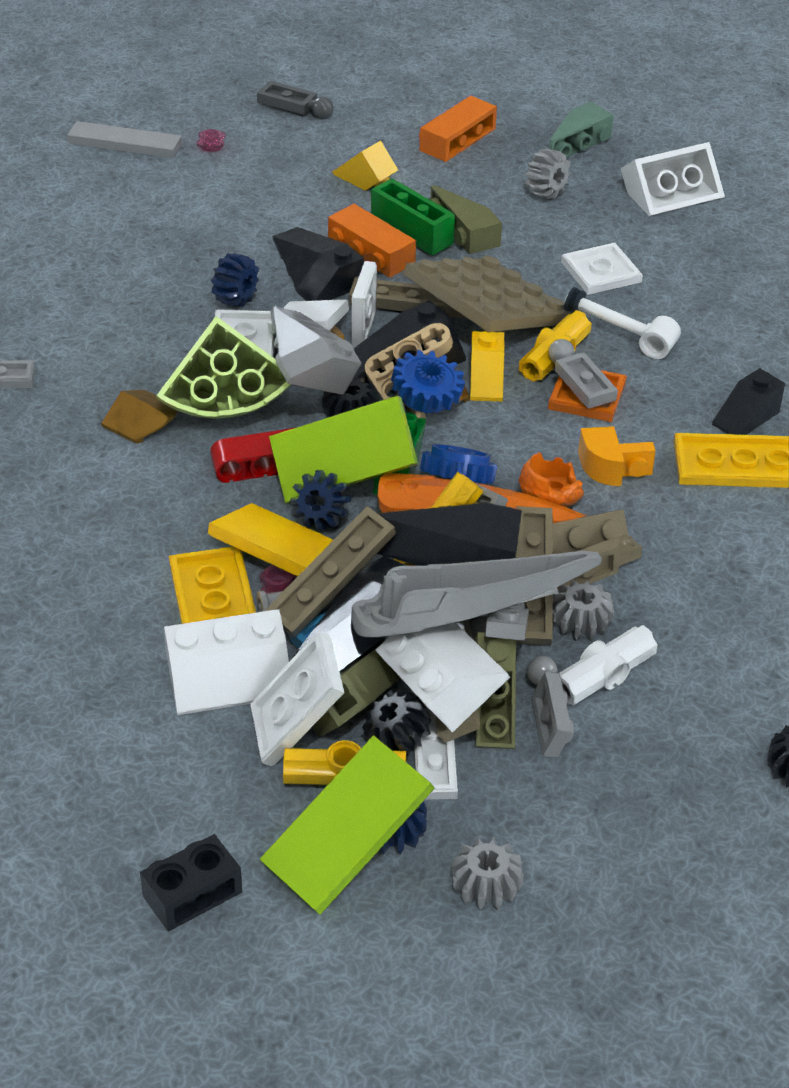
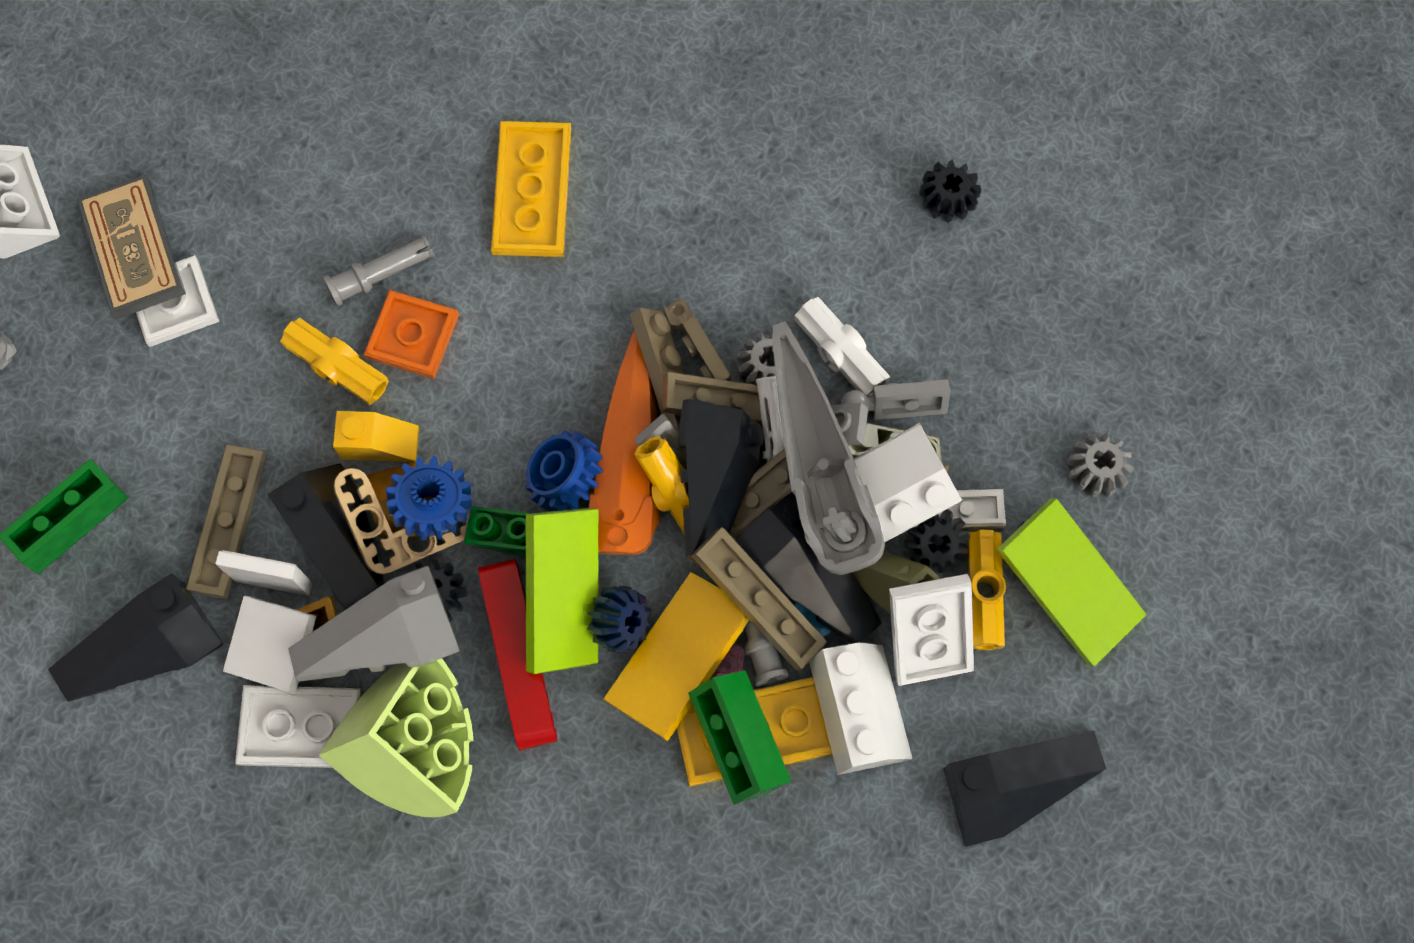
camera: 90 degrees left, 30 degrees up
(137, 415) = (440, 844): pearl gold slope -> none
(138, 781) = (1014, 785): none -> black wedge
(191, 882) = (1139, 719): black brick -> none
(204, 567) = (739, 737): none -> green brick
(235, 279) = (191, 738): dark blue gear -> none
(373, 239) = (102, 571): orange brick -> none
(474, 224) = (64, 451): olive slope -> none
(487, 293) = (245, 428): dark tan plate -> none
(550, 480) = (584, 381): orange hair -> none
(581, 375) = (405, 334): light grey plate -> none
(608, 460) = (537, 323): light orange brick -> none
(636, 360) = (361, 277): none -> light grey pin
(643, 241) = (130, 247): none -> tile
(656, 337) = (324, 249): white piece -> none
(750, 403) = (453, 169): black slope -> none

